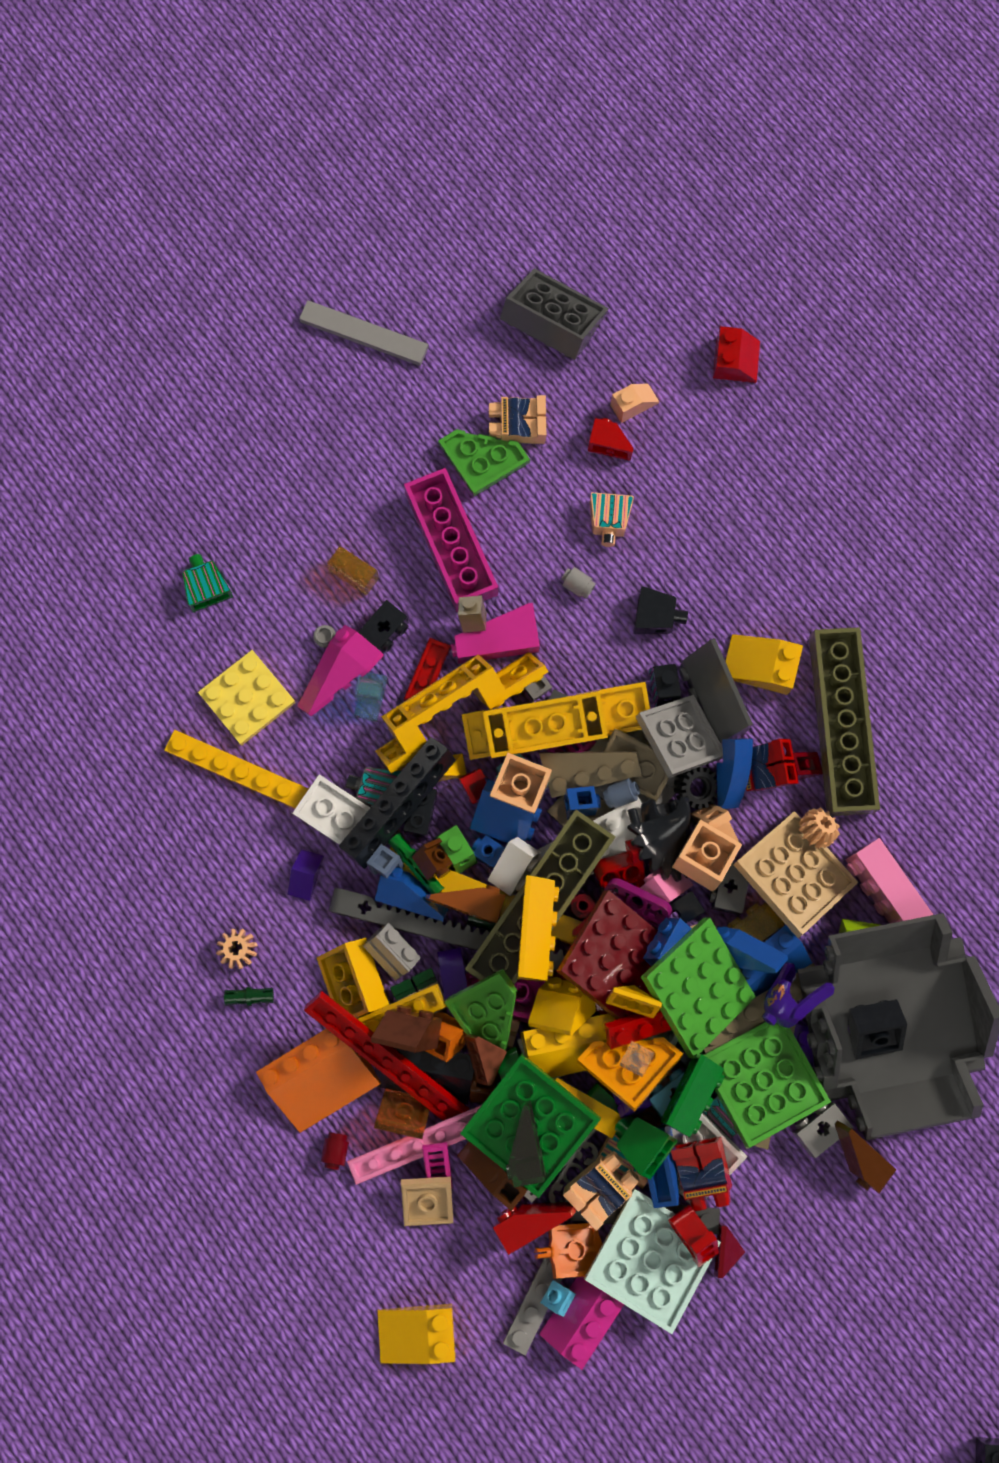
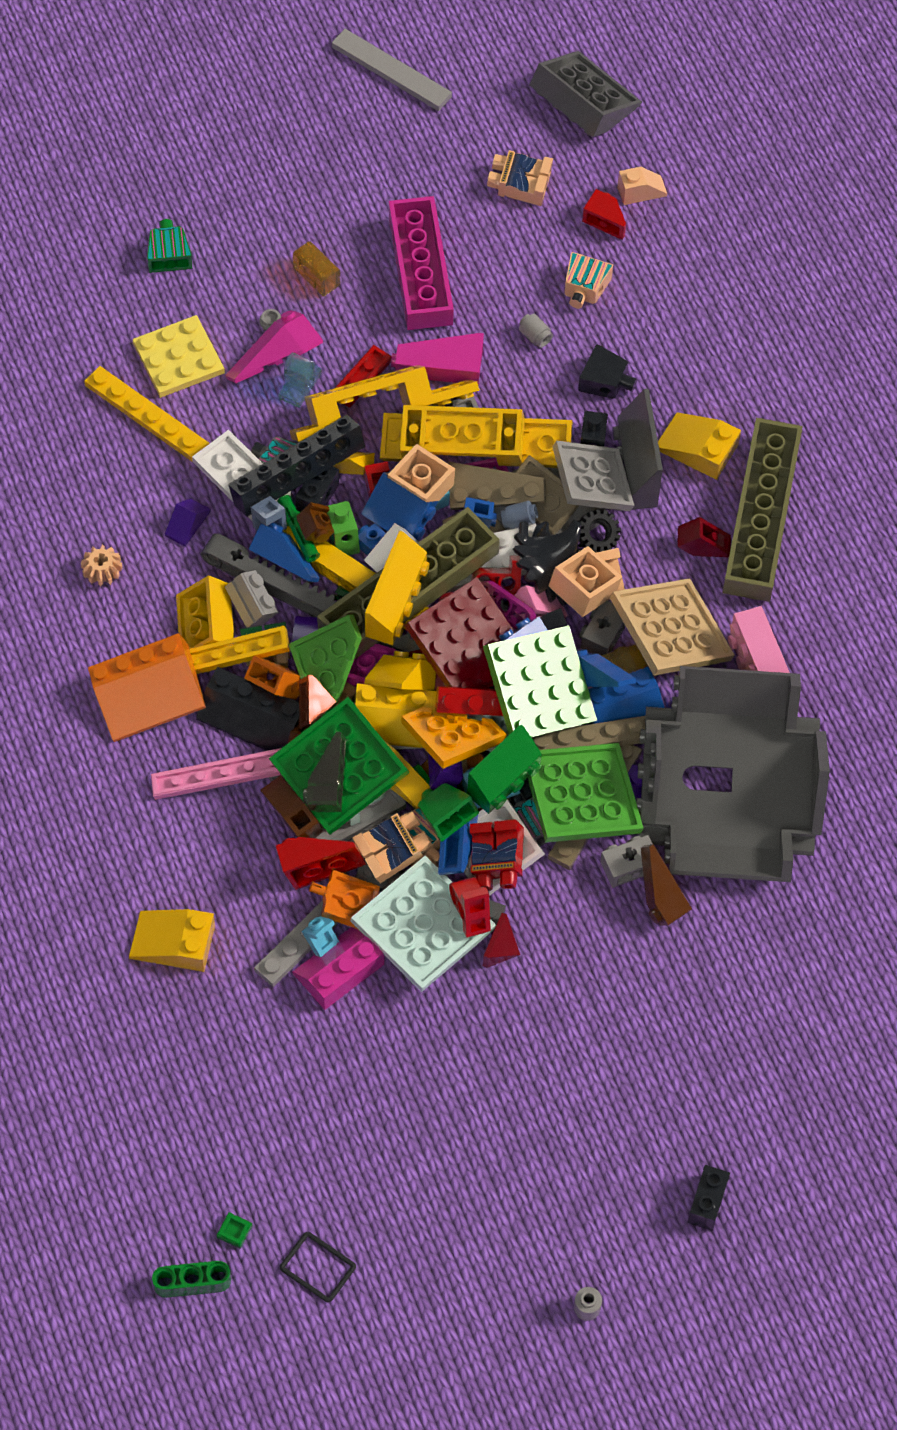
camera: 15 degrees right, 15 degrees down
(248, 996) = (100, 610): dark green pin -> none
(335, 1150) = (142, 761): dark red brick -> none
(384, 1057) = (214, 674): red plate -> none
(385, 617) = (333, 323): black brick -> none
(401, 1114) = (219, 740): clear orange tile -> none
(408, 1030) = (247, 652): copper slope -> none
(427, 1201) = (218, 823): tan tile -> none
(433, 1148) = (233, 812): dark pink slope -> none
(472, 614) = (420, 325): dark tan brick -> none
(477, 902) = (340, 567): dark orange slope -> none
(482, 458) = (474, 203): bright green plate -> none
(634, 1000) = (469, 669): yellow slope -> none
(637, 1059) = (459, 723): clear plate -> none
(733, 771) = (637, 522): blue slope -> none
(736, 355) = (756, 169): red slope -> none
(764, 775) = (669, 525): hips -> none
(782, 1008) = (625, 720): dark purple piece -> none
(819, 828) = (708, 594): light nougat gear -> none
(877, 1028) = (709, 777): black slope -> none

